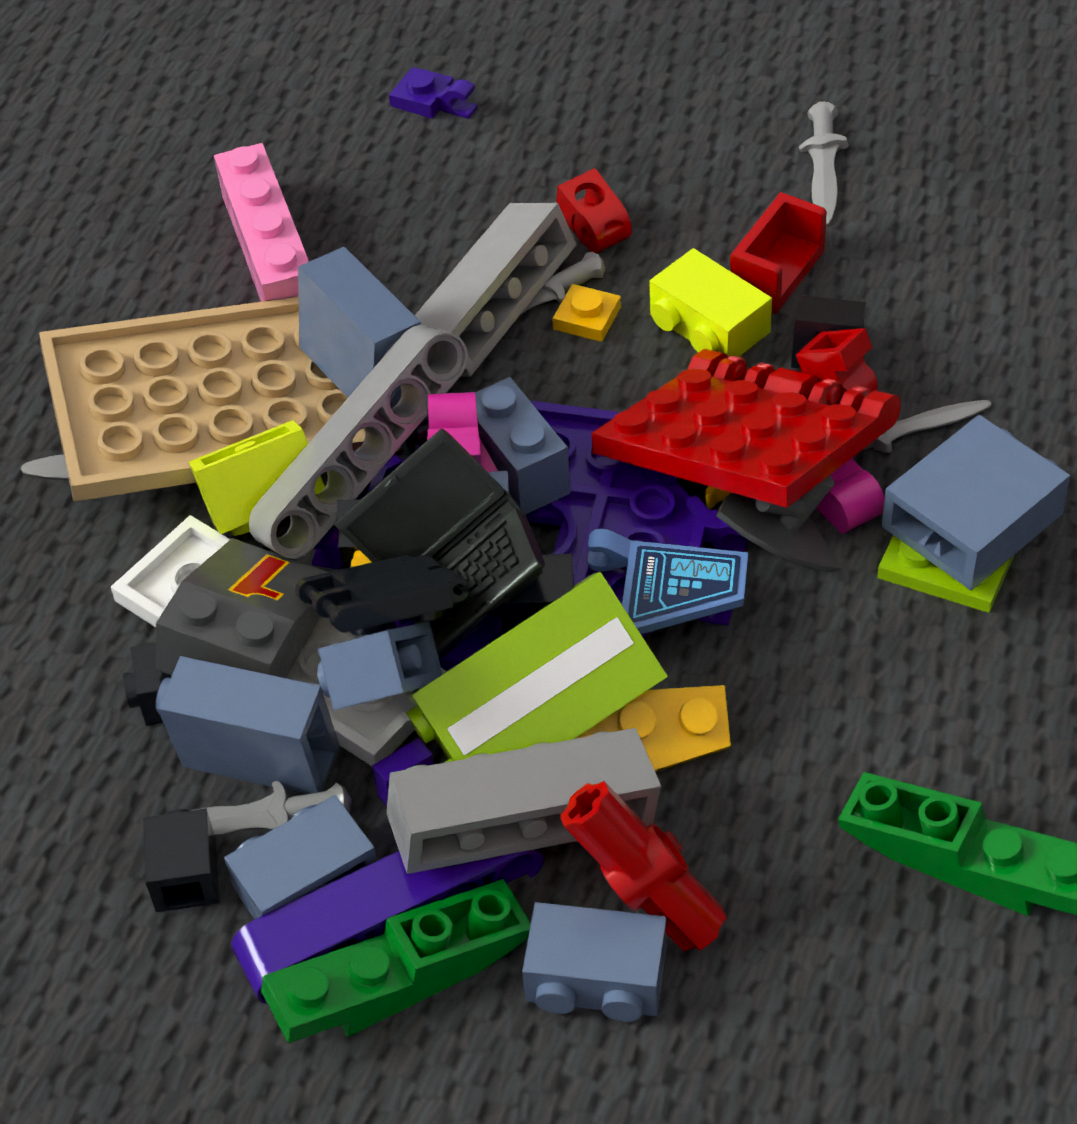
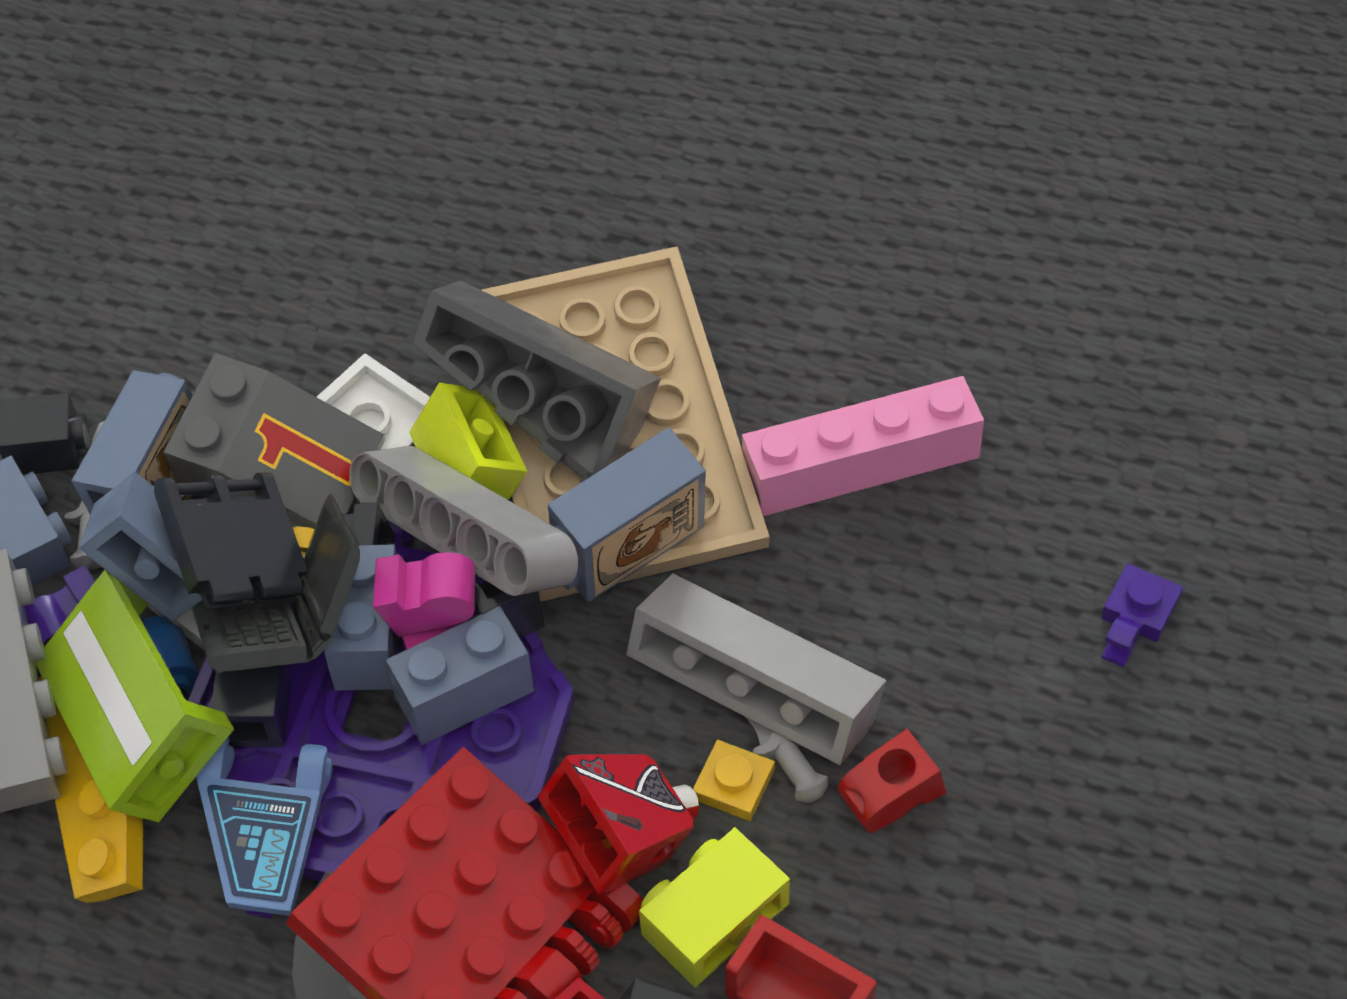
camera: 90 degrees right, 5 degrees up
(200, 397) = (547, 381): none -> dark grey wedge
(635, 348) = (618, 815): none -> red torso

